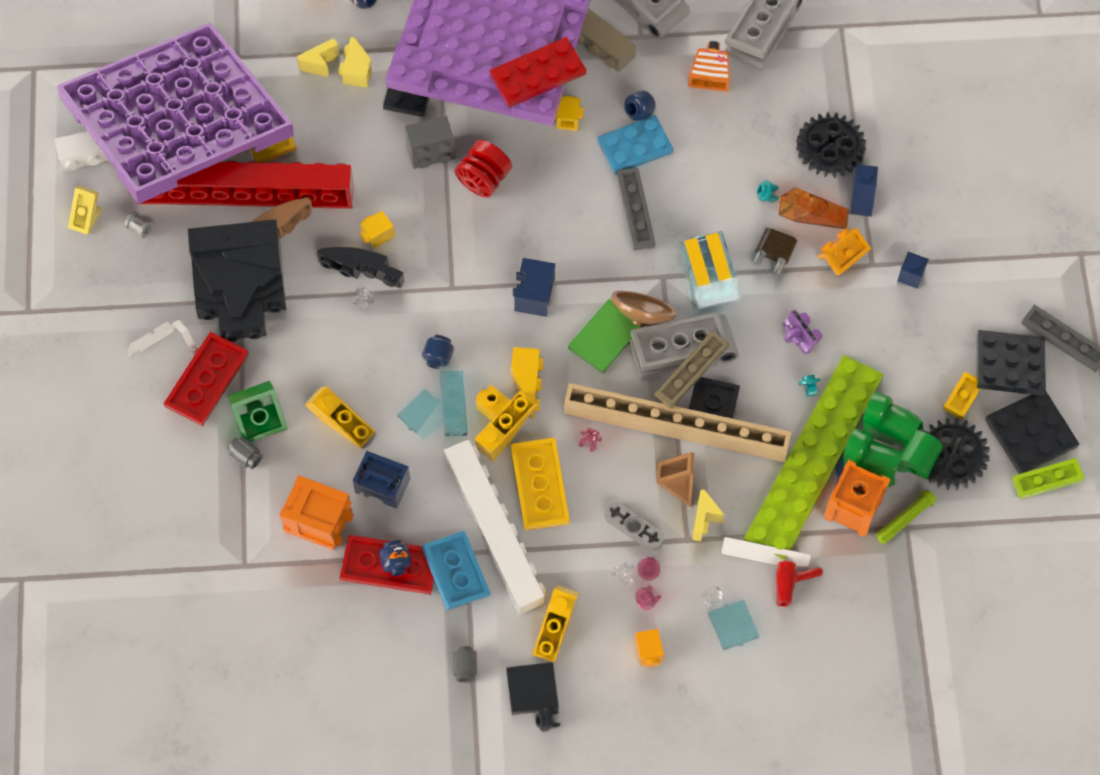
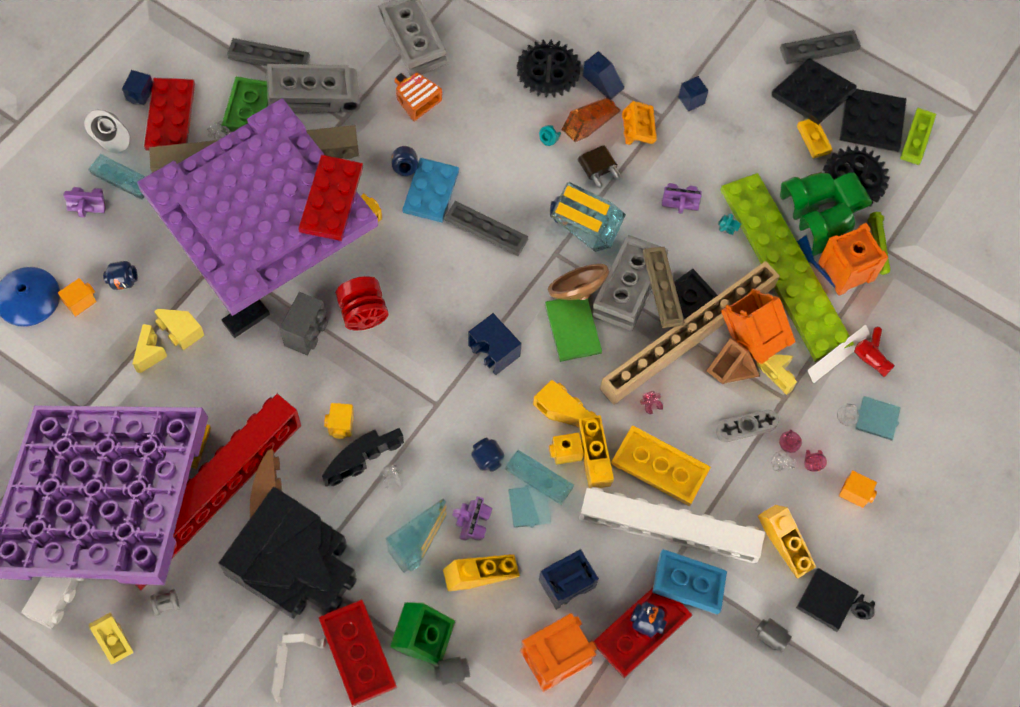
camera: 55 degrees left, 0 degrees up
(326, 350) = (413, 540): none -> clear light blue slope
(386, 377) = (470, 516): none -> medium lavender hips
(721, 465) = (759, 324): none -> orange container

